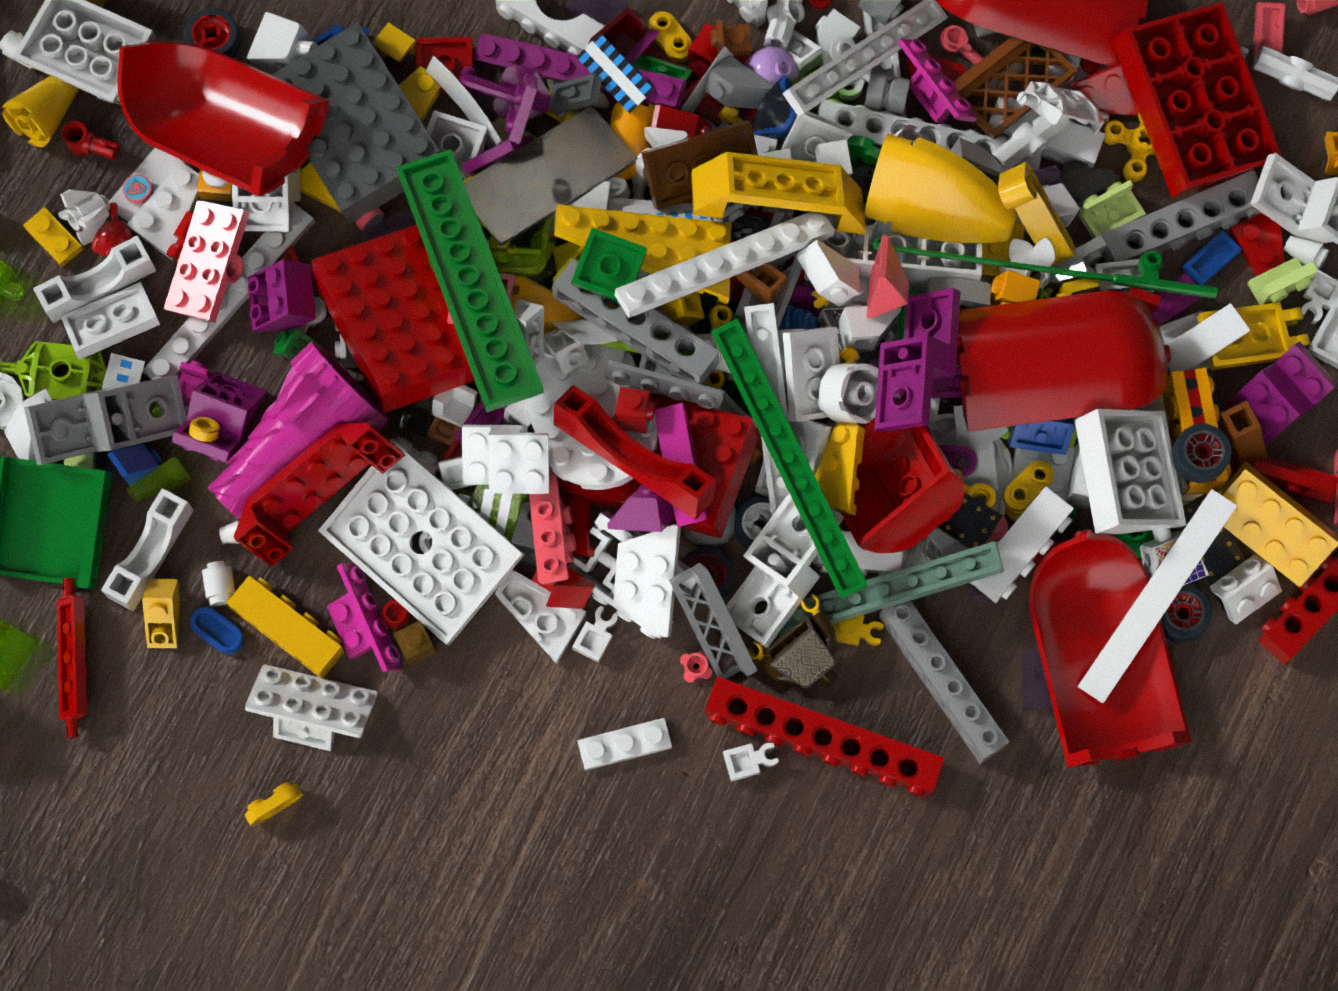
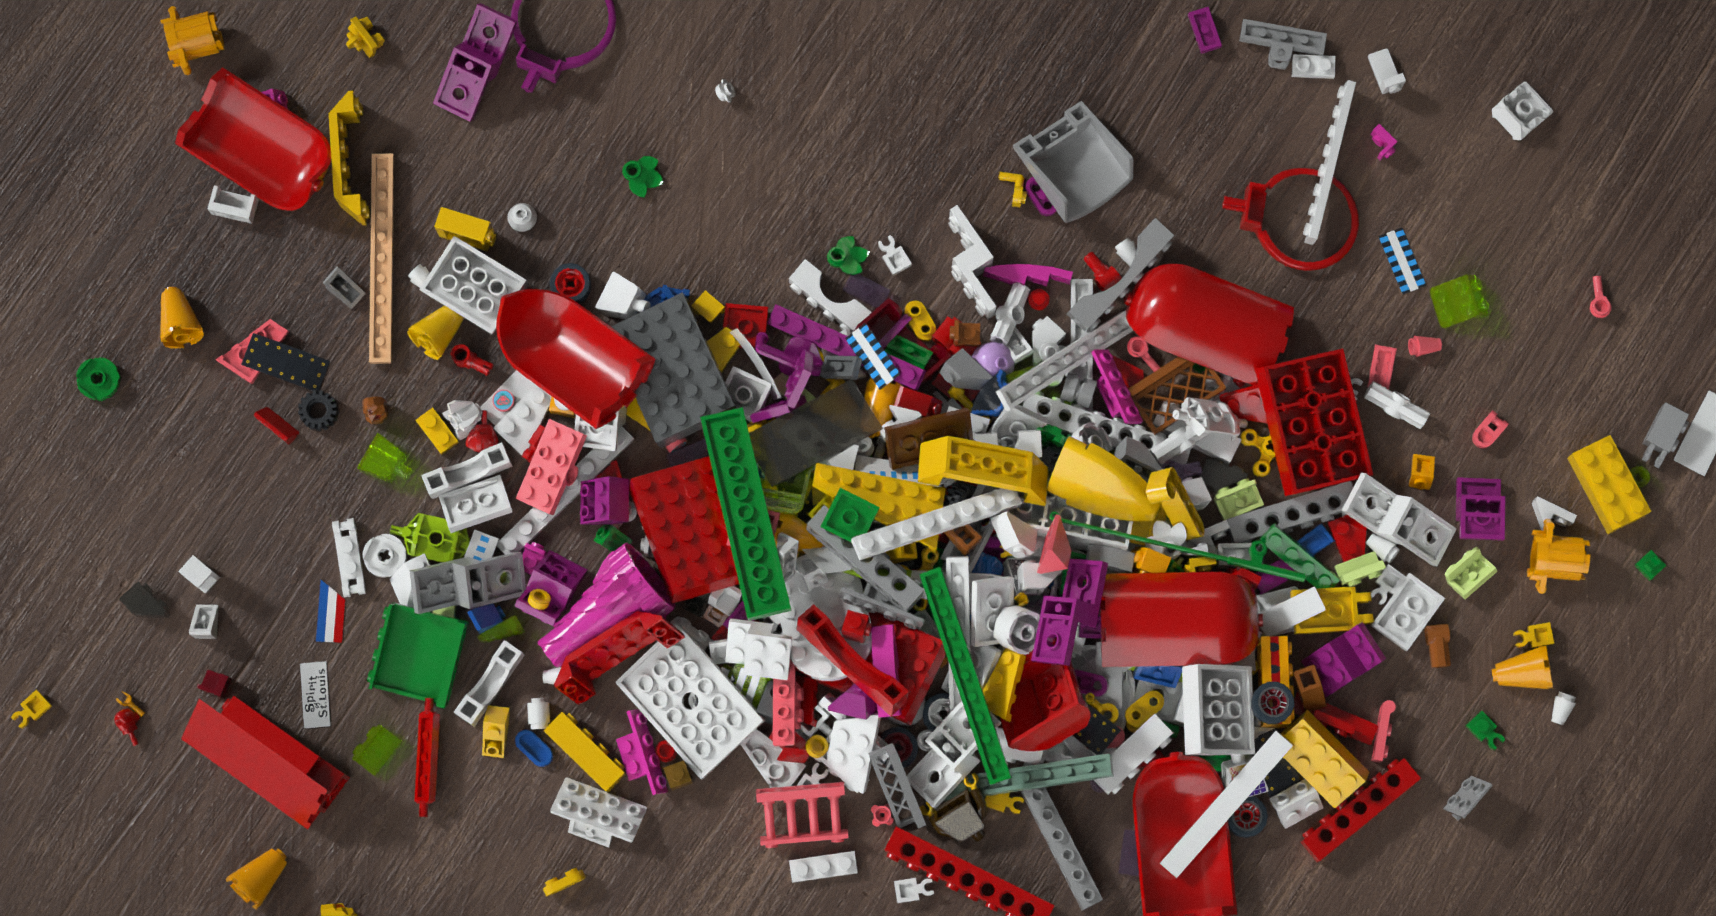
camera: 10 degrees right, 5 degrees up
(598, 581) = (816, 746): none -> yellow tile
(598, 647) = (811, 794): none -> coral fence
(699, 93) = (936, 373): white sticker -> none
(737, 567) = (926, 733): none -> white plate
(1199, 271) = (1299, 558): none -> green plate

